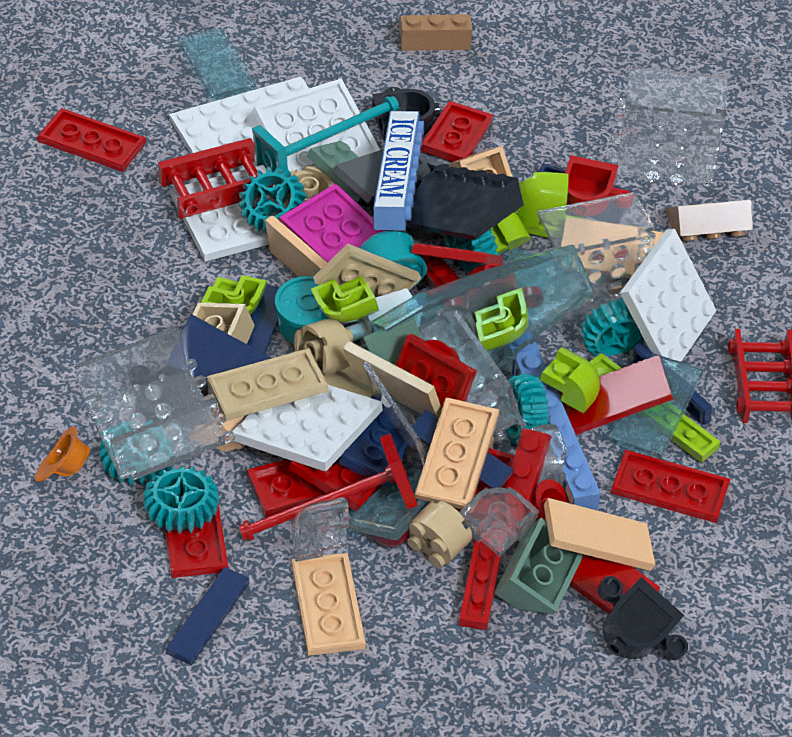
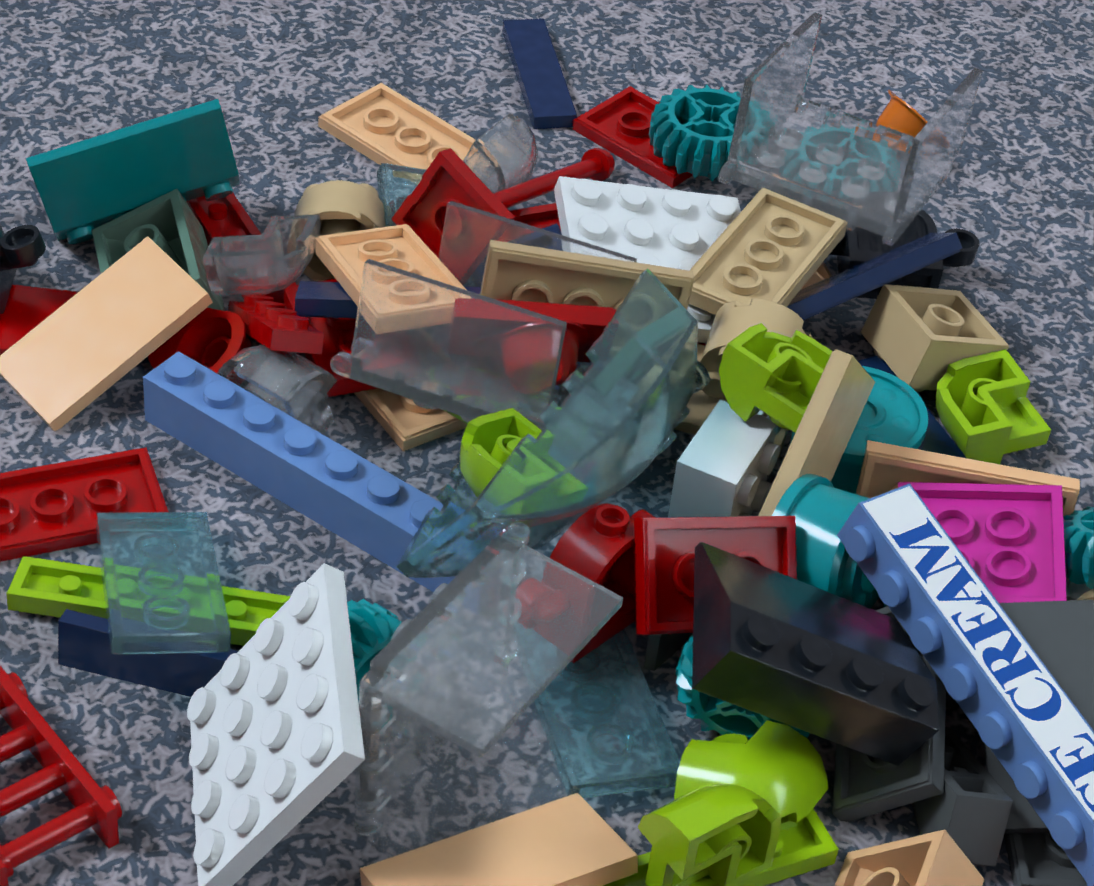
camera: 140 degrees right, 5 degrees down
(528, 589) = (133, 165): none -> teal slope
(530, 402) = (369, 421): teal gear -> none
(574, 378) = (331, 509): lime brick -> none
(623, 394) = (239, 556): tile -> none

